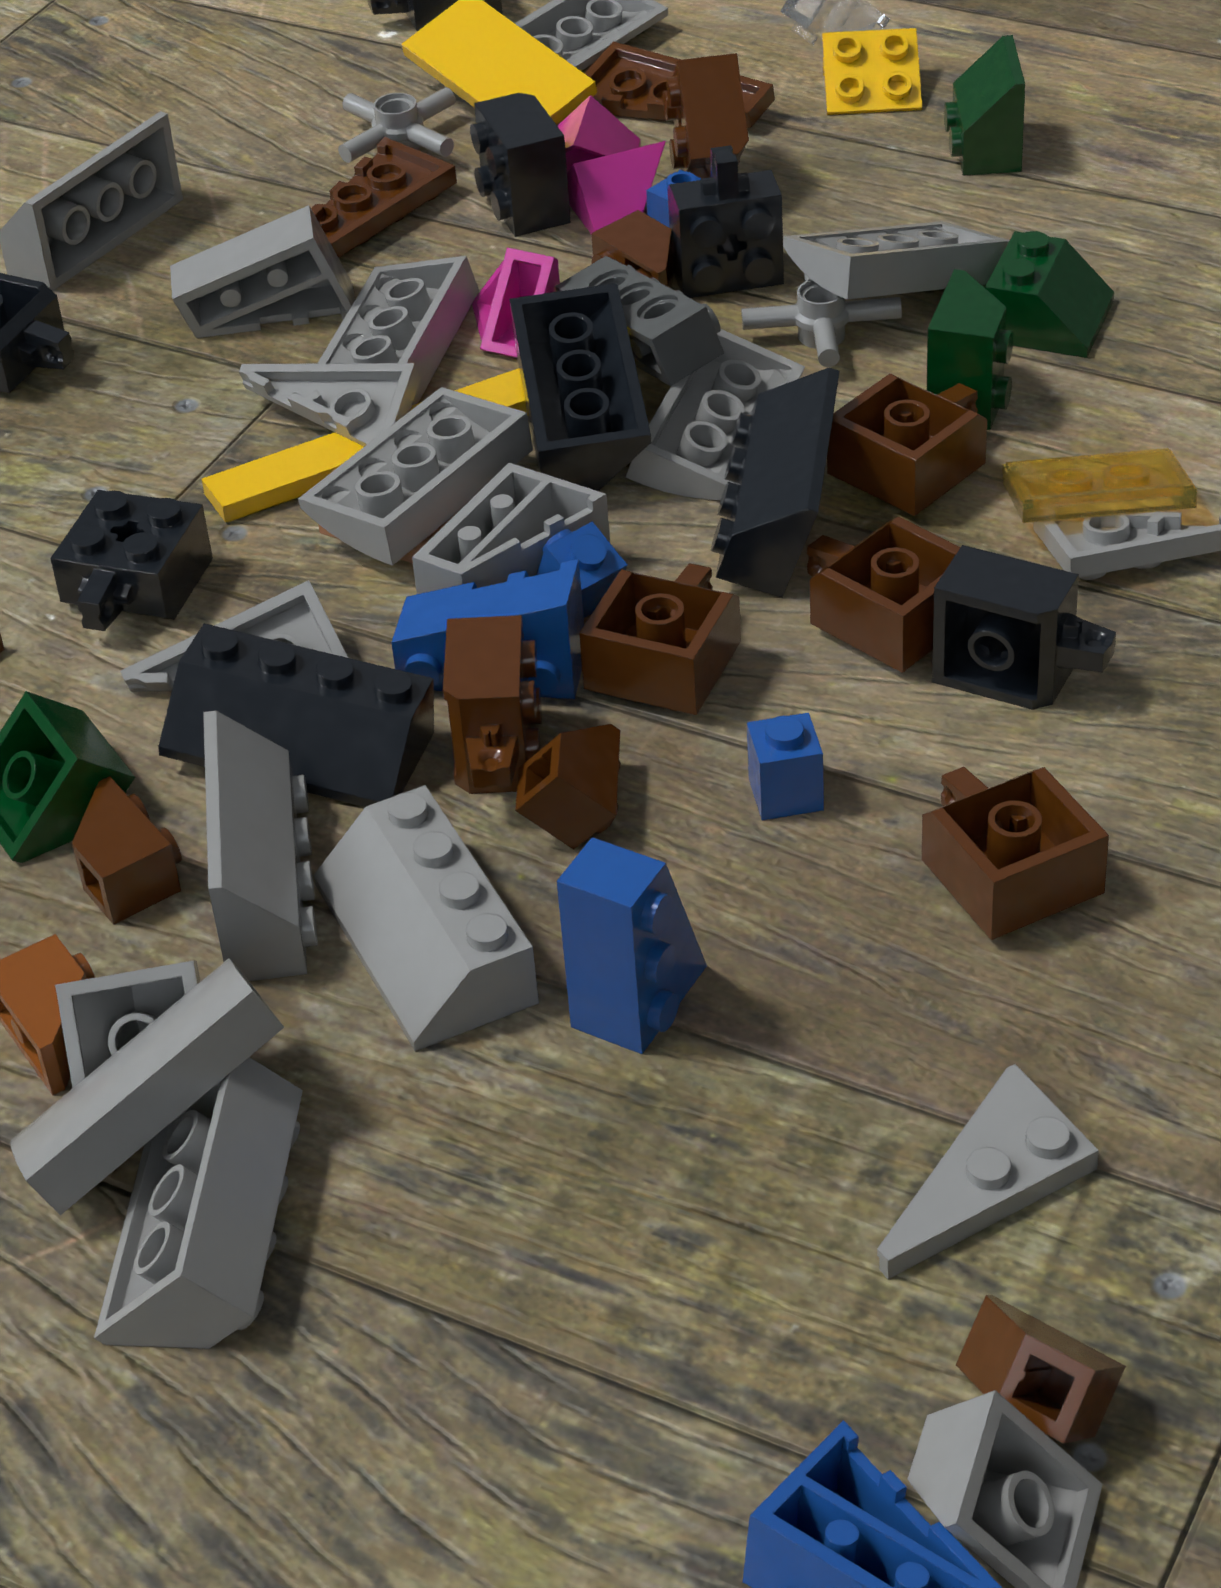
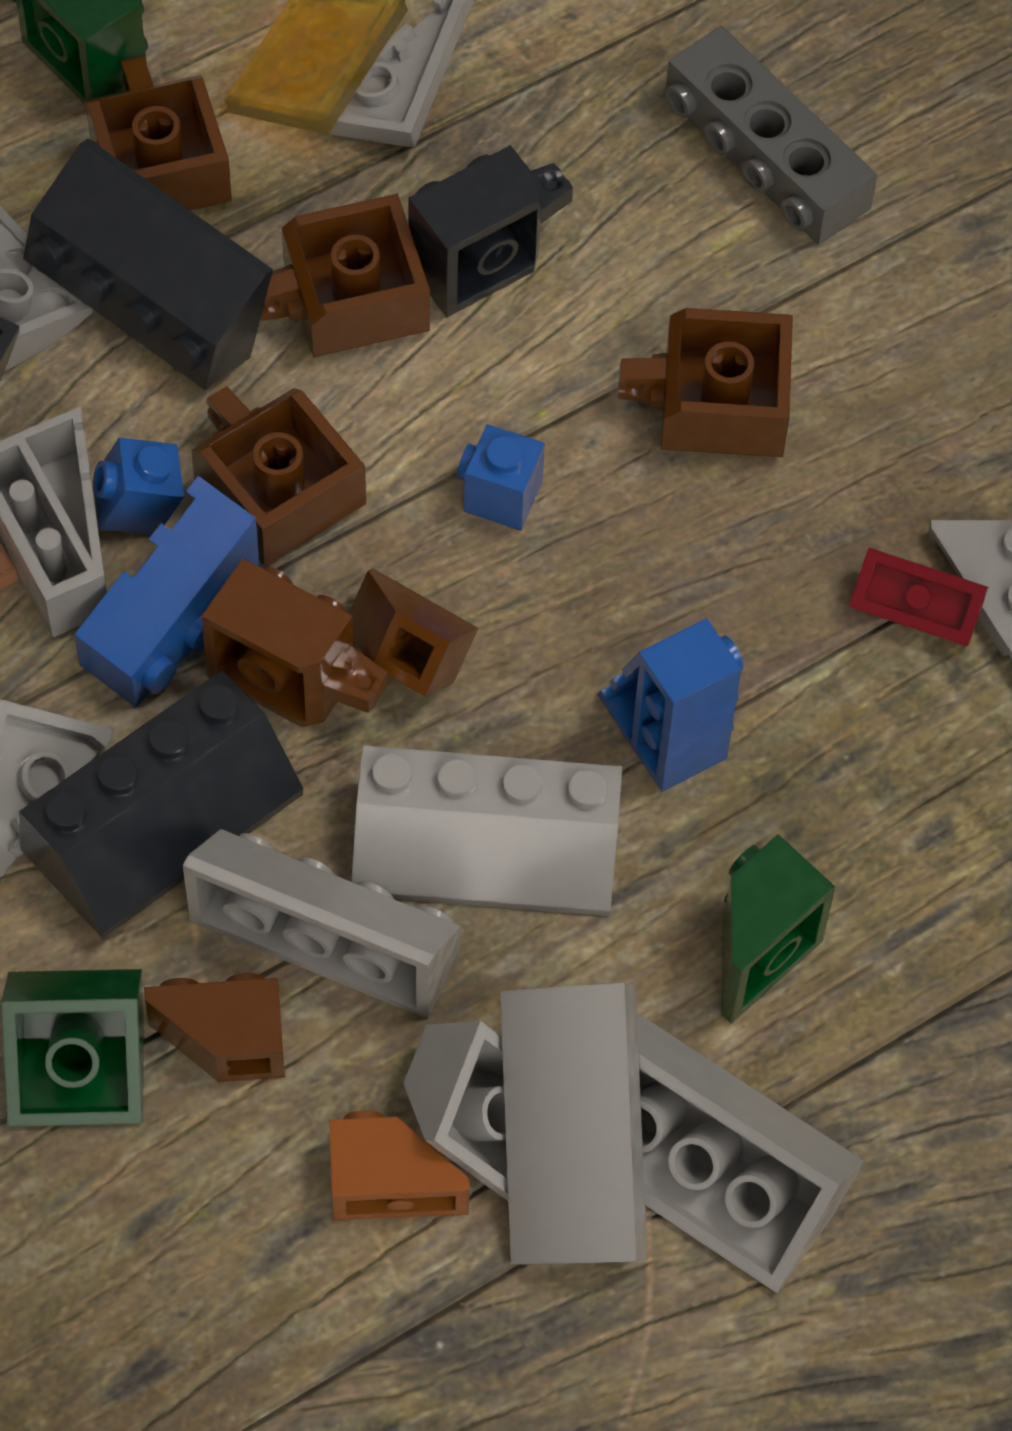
camera: 65 degrees left, 20 degrees up
(440, 1121) = (770, 921): none -> dark green slope
(917, 1091) = (918, 596): none -> dark red plate

